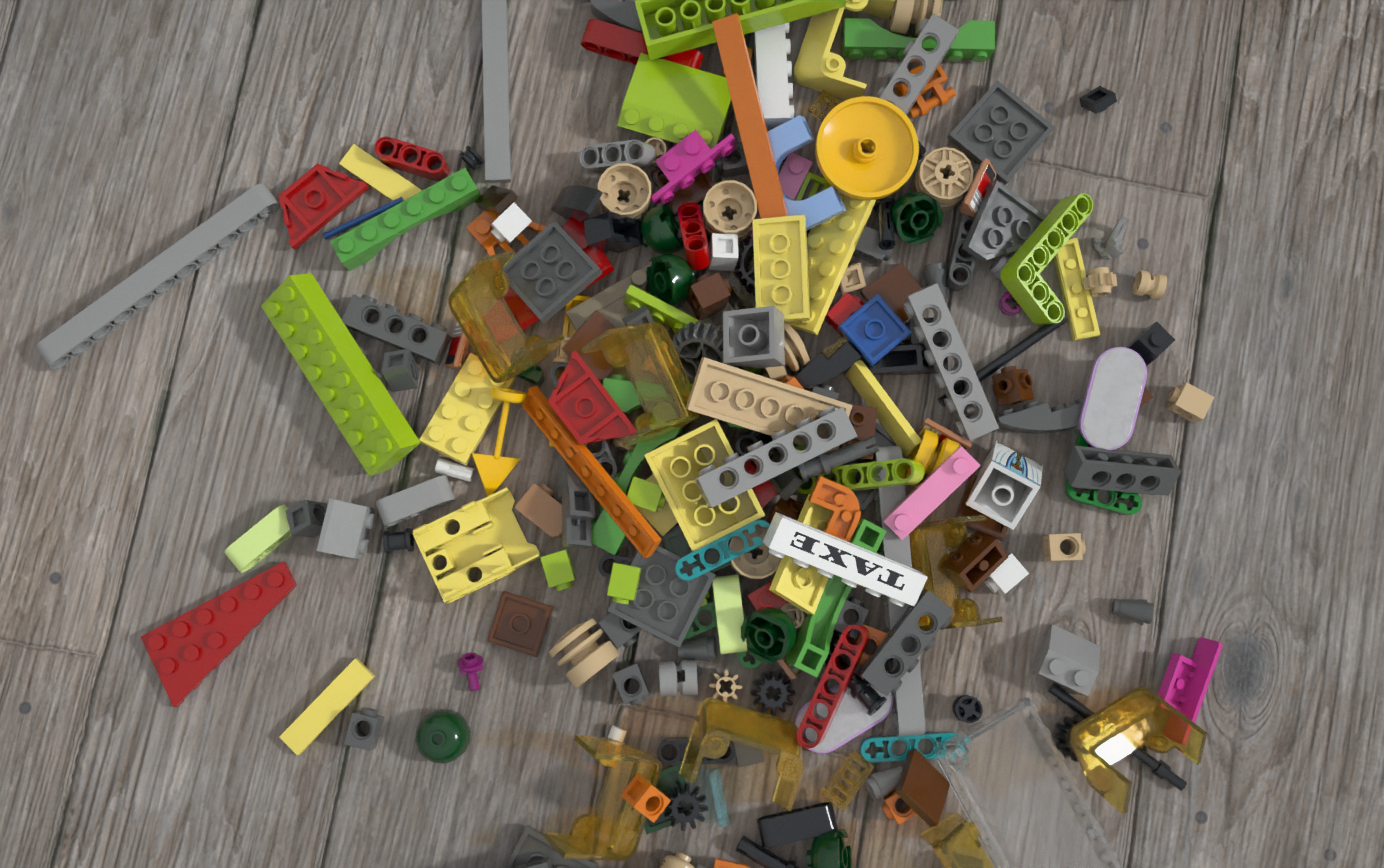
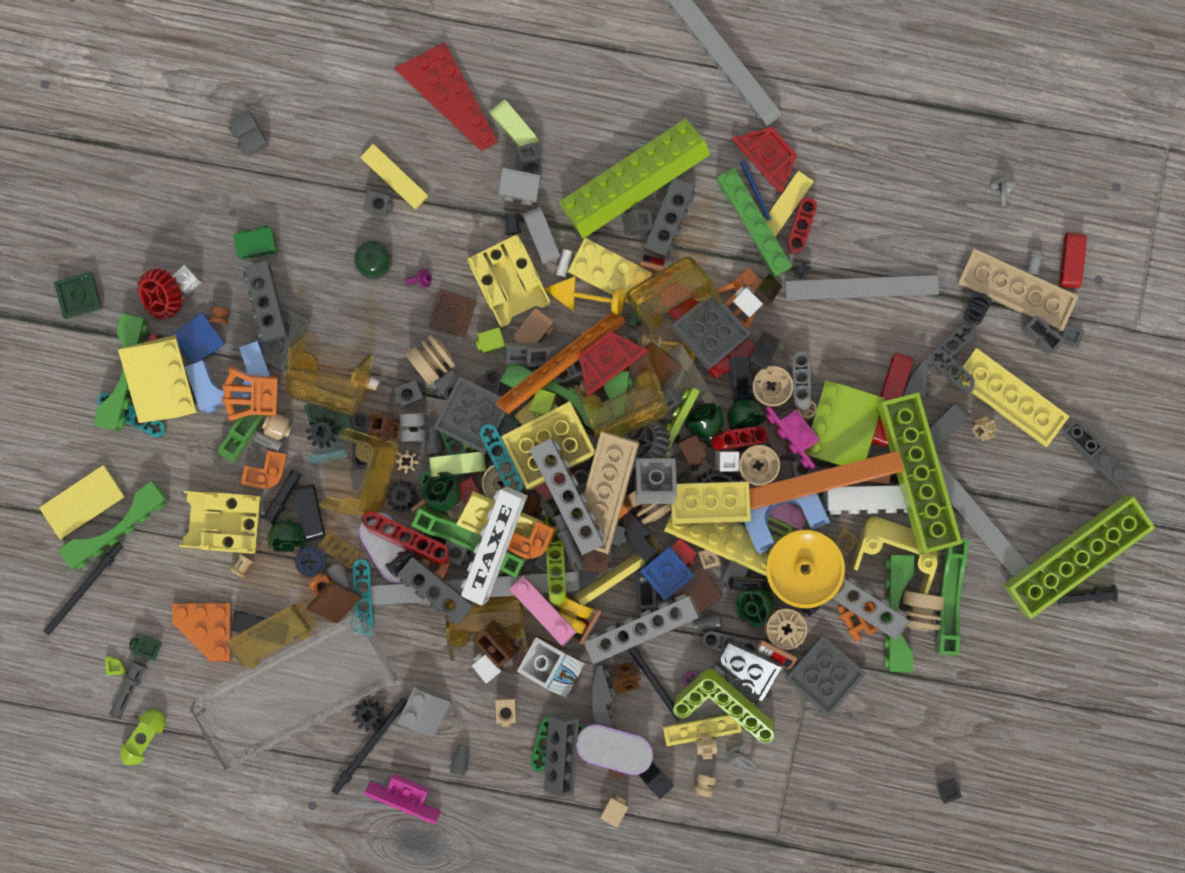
camera: 90 degrees right, 5 degrees up
(624, 583) = (478, 387): lime brick -> none
(645, 797) = (328, 403): orange brick -> none
(676, 718) = (384, 426): none -> reddish brown brick
(875, 829) = (305, 569): none -> dark blue gear
(972, 711) = (387, 639): black wheel -> none
(1098, 99) = (851, 752): black plate -> none
(1121, 728) = (374, 746): clear yellow windscreen -> none

